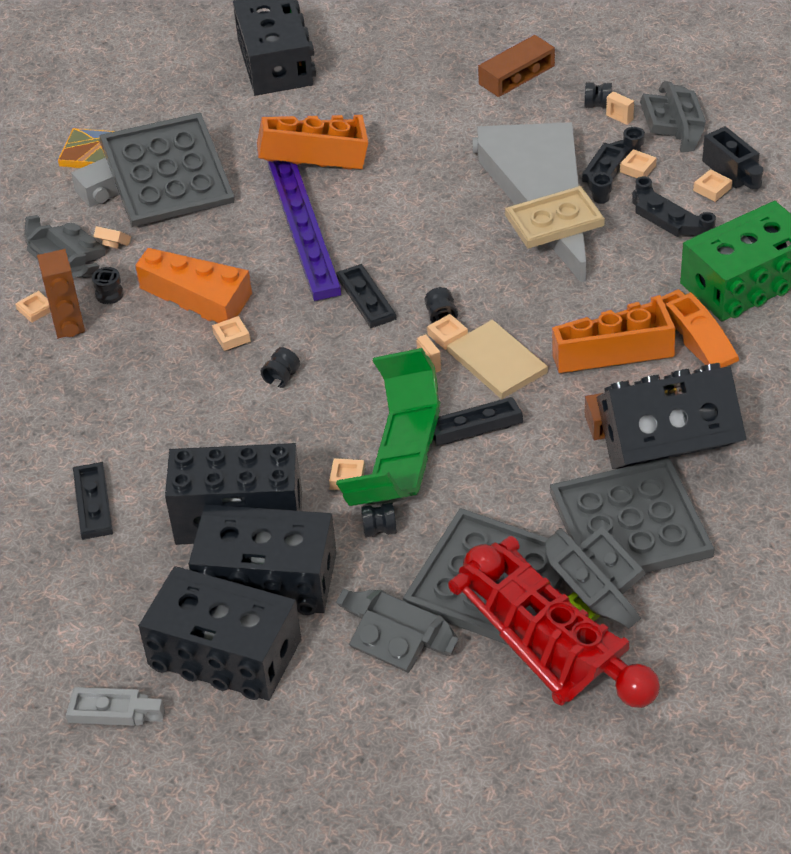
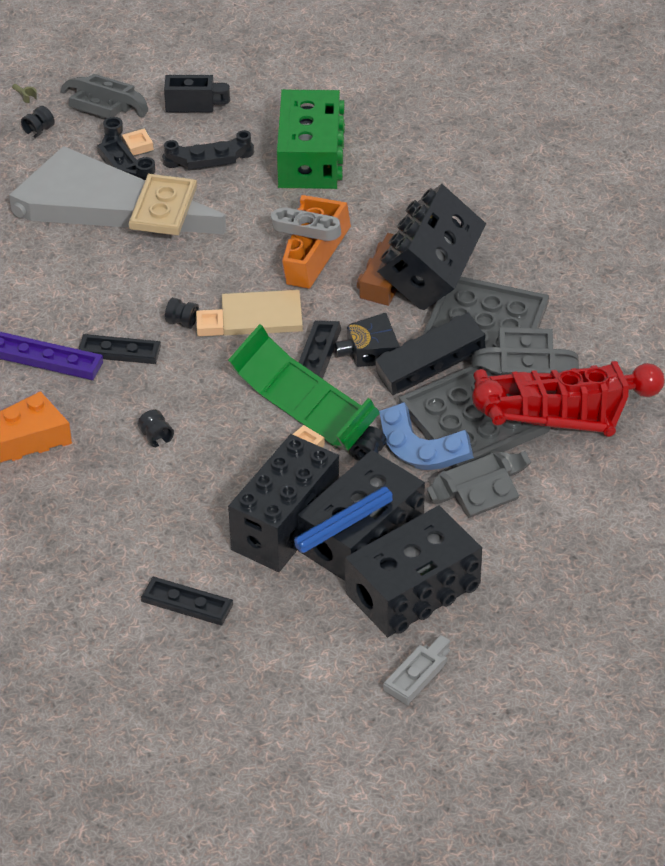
camera: 60 degrees left, 0 degrees up
(215, 537) = (343, 519): none -> blue axle
(231, 333) = (84, 440): light nougat plate -> none
(402, 550) = (421, 452): none -> medium blue plate
(430, 350) = (226, 341): light nougat tile -> none
(520, 450) = (368, 340): none -> black torso
(533, 498) = (430, 353): none -> black brick
(610, 323) = (321, 226): none -> light grey beam
(620, 108) = (66, 118): light nougat plate -> none
(632, 70) = (26, 92): none -> olive hand
(699, 329) = (360, 197): orange slope -> none
(712, 185) = (201, 119): light nougat plate -> none

